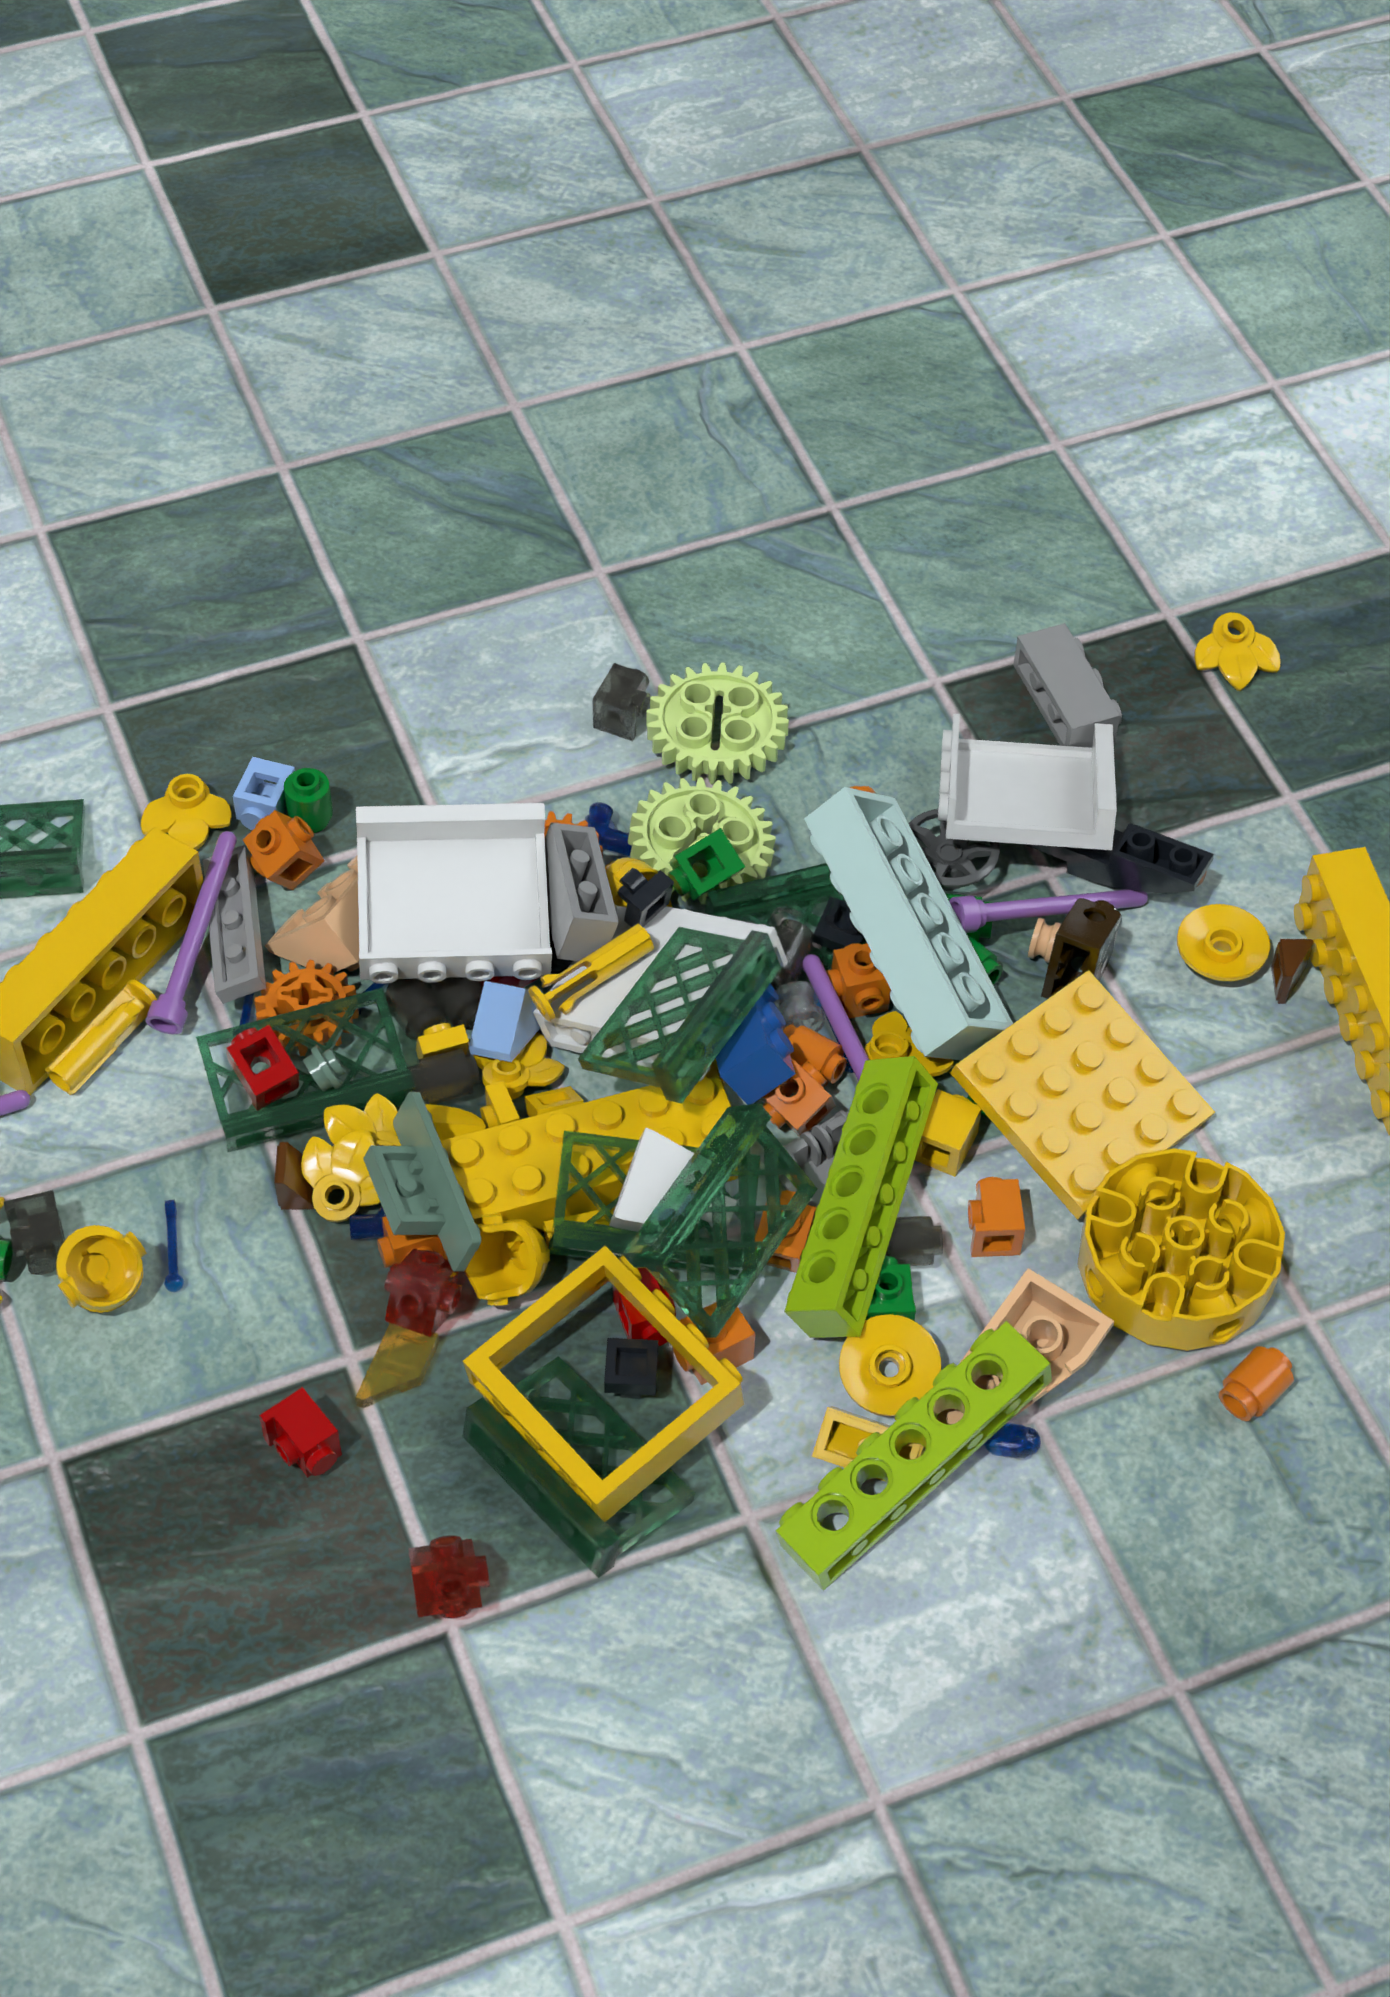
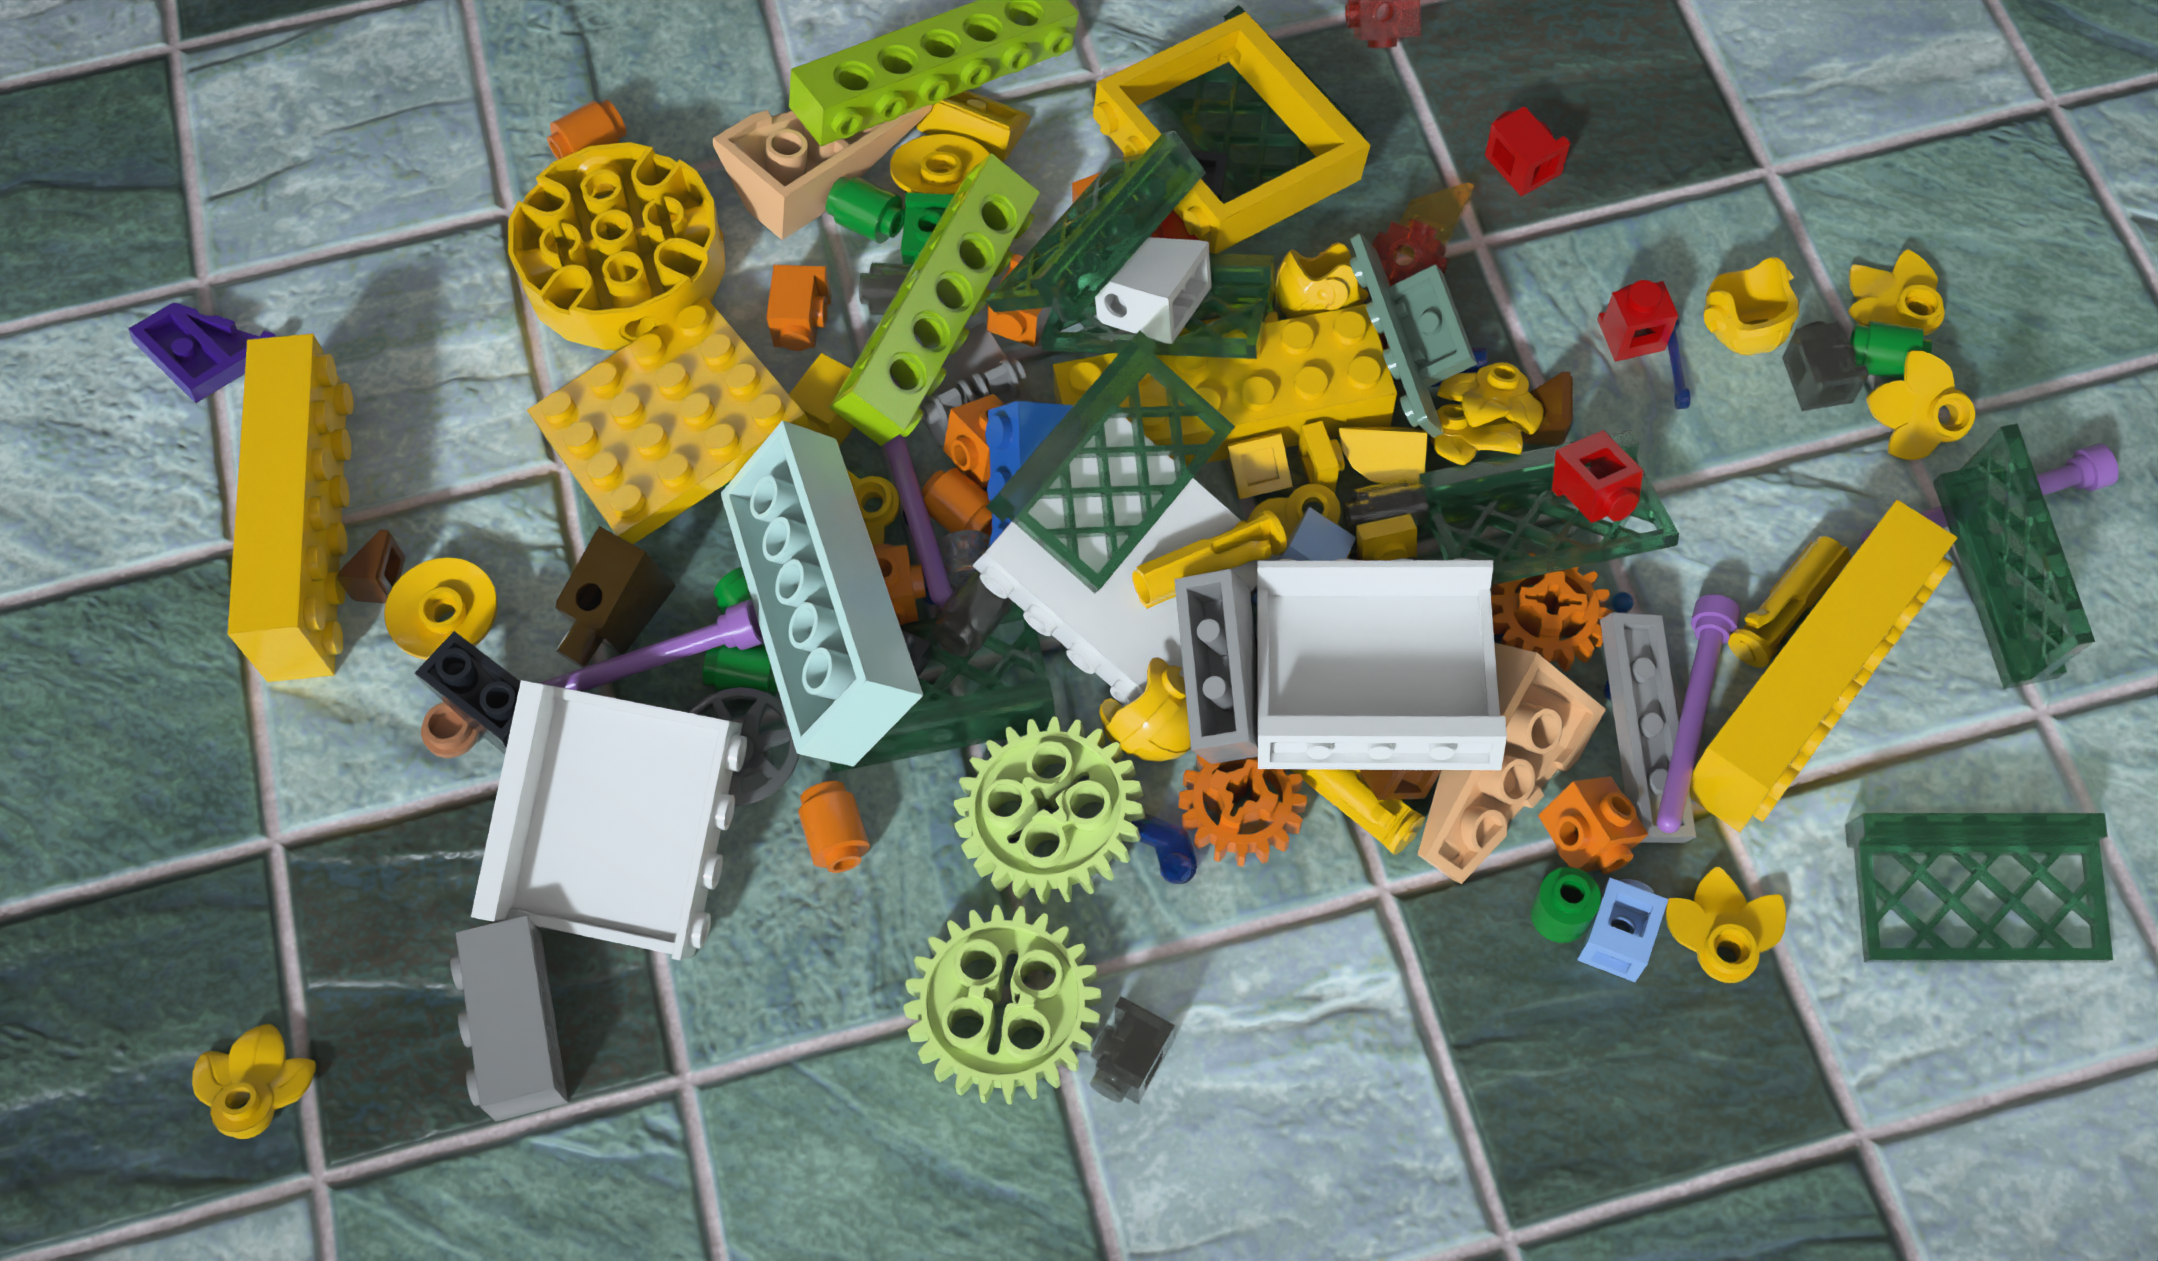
camera: 170 degrees left, 10 degrees up
(207, 1261) = (1635, 308): none -> red brick
(325, 1068) = (1525, 482): sand green plate -> none
(644, 897) = (1135, 640): black tile -> none
(718, 857) = (1052, 713): green brick -> none
(953, 1318) = (865, 209): none -> green brick
(1043, 939) = (651, 628): light nougat bush -> none

